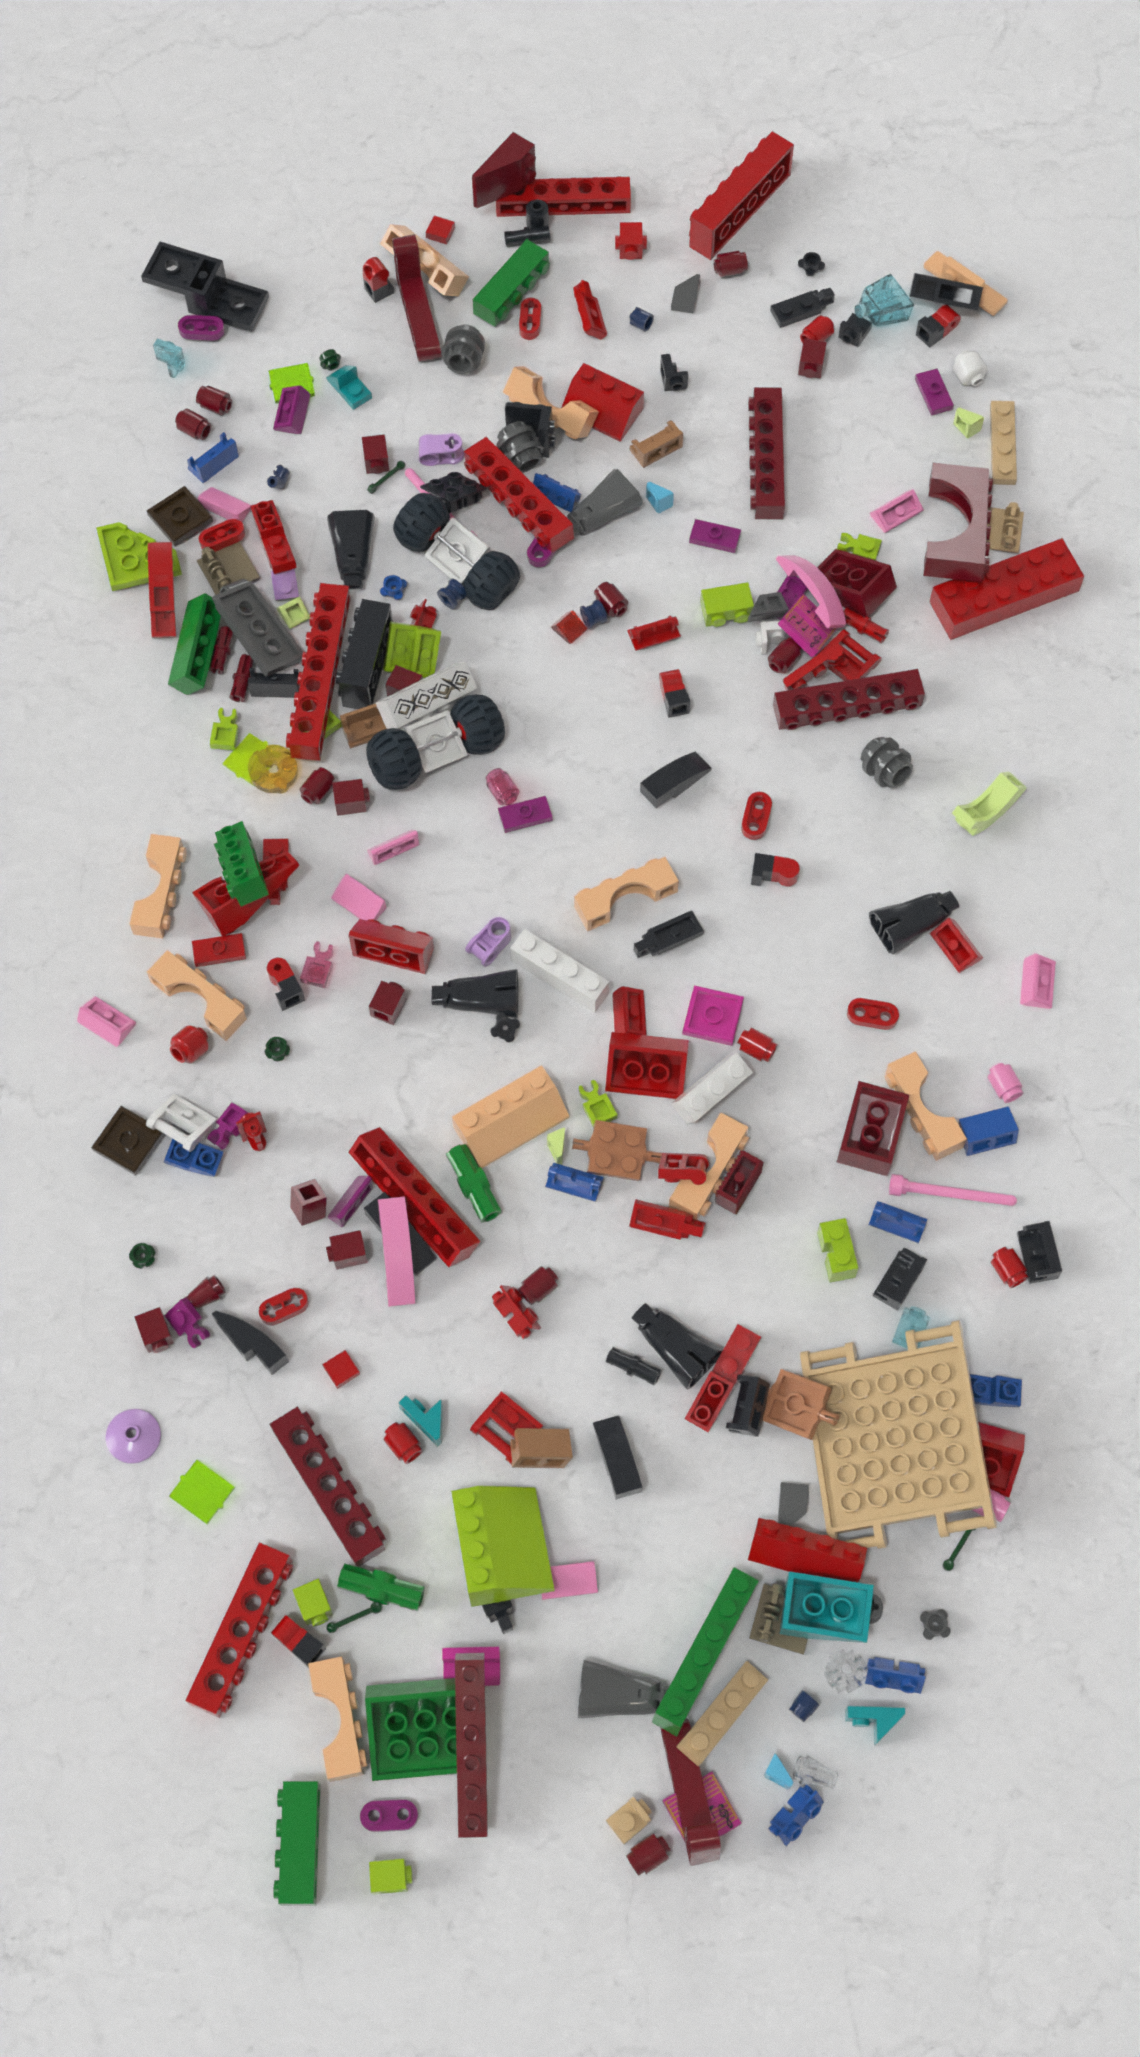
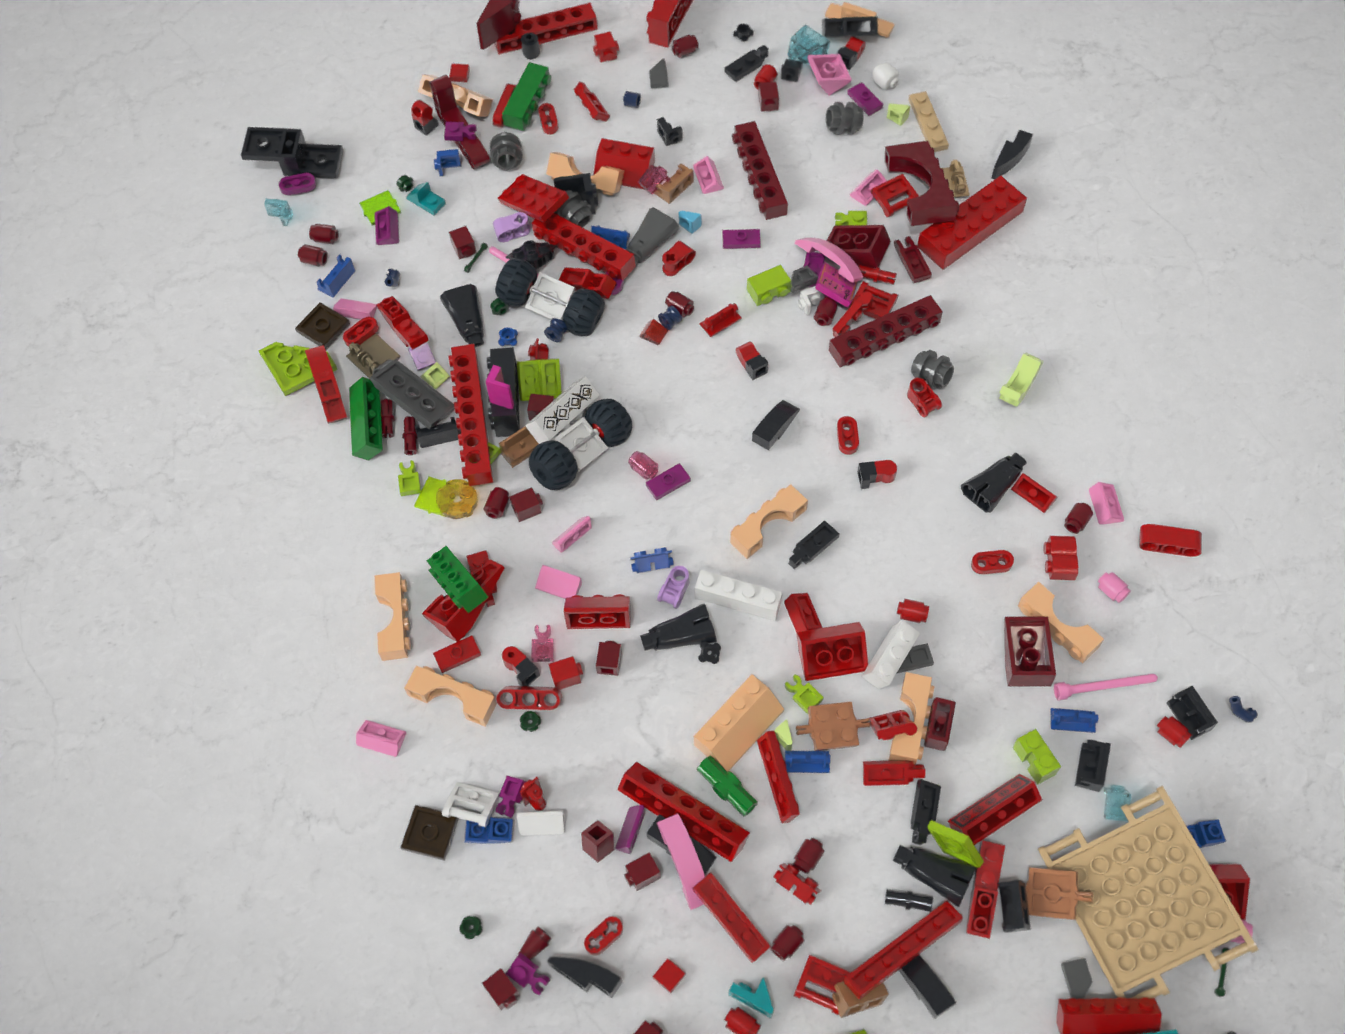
camera: 15 degrees left, 5 degrees down
(189, 1044) = (456, 738): red head -> none
(253, 1165) = (541, 823): none -> white slope
(271, 1022) = (520, 703): none -> red beam
(333, 1005) = (565, 672): none -> red brick
(353, 650) = (498, 391): none -> dark pink panel
(388, 341) = (447, 159): none -> blue bracket
(393, 547) = (498, 307): none -> dark green plate
(411, 308) = (456, 131): none -> magenta plate
(427, 1326) = (731, 917): none -> red plate
(464, 900) = (643, 561): none -> blue hinge
(467, 303) = (497, 117): none -> red beam
(476, 419) = (533, 197): none -> red plate
(482, 1371) = (787, 942): none -> dark red brick
(508, 541) = (587, 279): none -> red slope
(532, 234) = (521, 63): black pin -> none
(534, 1186) = (778, 777): none -> red plate
(605, 1415) = (902, 950): none -> red plate
(629, 538) = (677, 258): none -> red piece
(631, 429) = (652, 177): none -> clear pink bracket
(687, 1273) = (924, 809): none -> black hinge
(702, 443) = (708, 175): none -> bright pink slope
(703, 1318) = (955, 844): none -> lime plate
(713, 1015) = (869, 597): dark pink tile -> none
(740, 1100) = (917, 658): none -> dark grey tile
(766, 1295) = (996, 809): none -> red brick
(864, 797) = (925, 399): none -> red piece
(896, 411) = (845, 117): none -> dark grey piece
(898, 345) = (829, 71): none -> bright pink slope
(915, 619) = (913, 260): none -> dark red hinge
(920, 522) = (892, 190): none -> red plate
(956, 1031) = (1062, 558): none -> red brick
(989, 1130) = (1117, 627): blue hinge -> none
(995, 989) = (1078, 518): none -> dark red brick
(1091, 512) = (1012, 153): none -> black slope
(1095, 1264) = (1238, 710): none -> dark blue arm
(1096, 1046) = (1170, 540): none -> red beam

